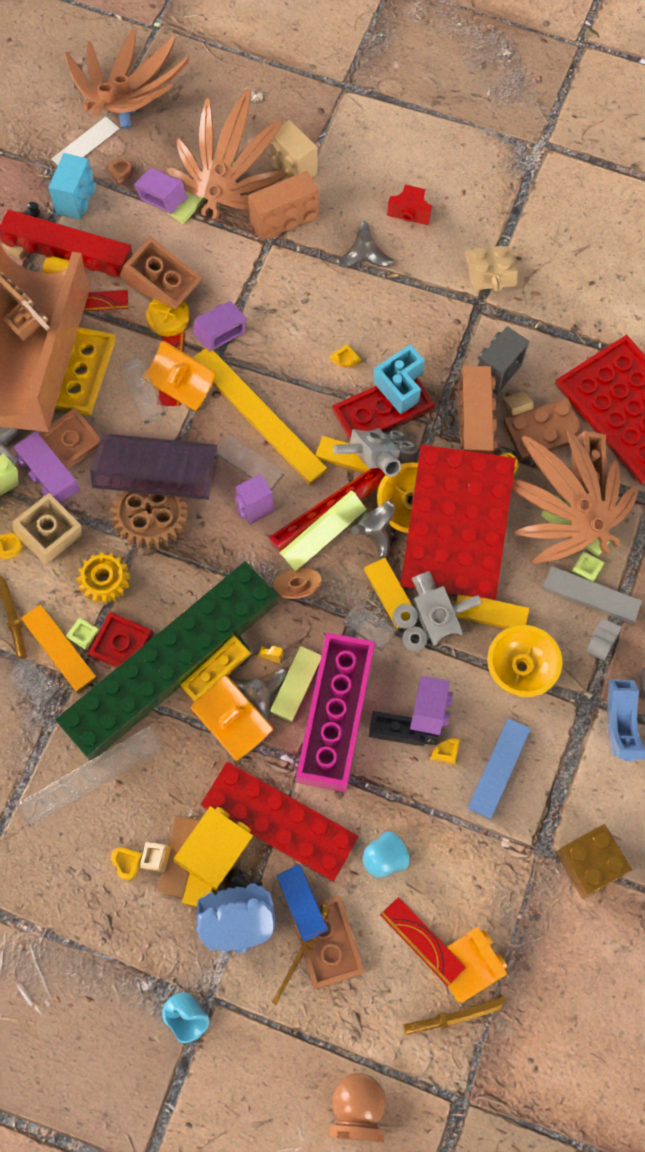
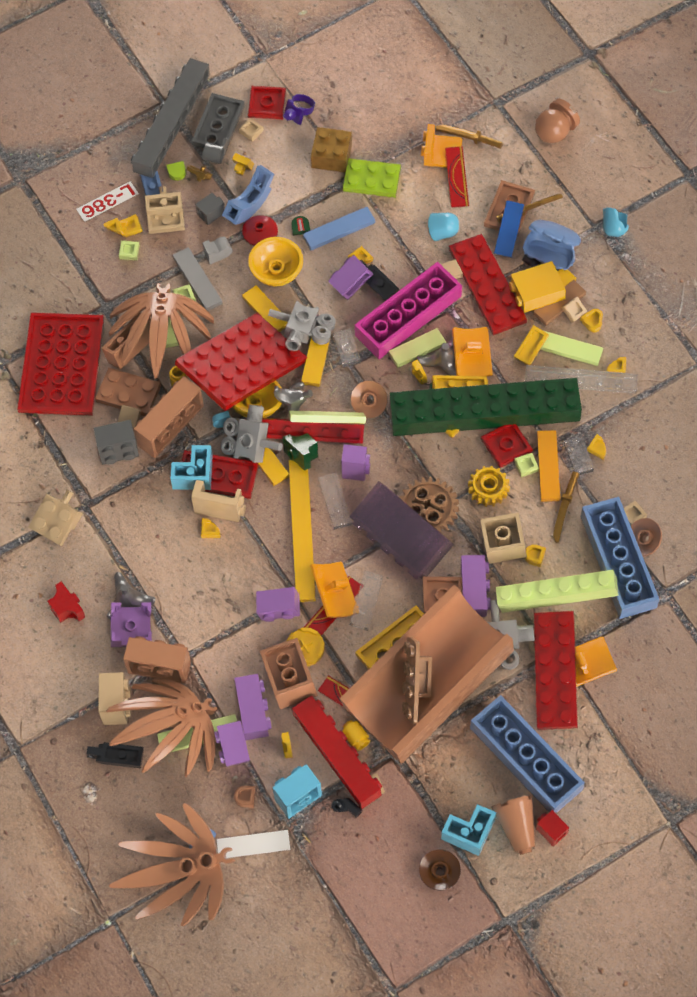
camera: 140 degrees left, 5 degrees down
(19, 707) = (597, 447): none -> yellow tile
(59, 821) = (618, 365): none -> yellow tile
(117, 226) = (286, 745): none -> yellow tile
(135, 803) = (572, 349): none -> yellowish green tile
(171, 232) = (252, 706): none -> medium lavender brick
(171, 772) = (531, 345): none -> yellow tile
(258, 123) = (117, 755): none -> black hinge
(319, 478) = (301, 449): none -> dark green brick
(333, 806) = (453, 268): none -> tan tile
(336, 223) = (129, 622): none -> medium lavender panel
(351, 368) = (217, 505): none -> tan panel
(519, 865) = (372, 178): none -> lime plate
(543, 739) = (300, 225): none -> dark green tile
(573, 711) = (253, 234): none -> red dish

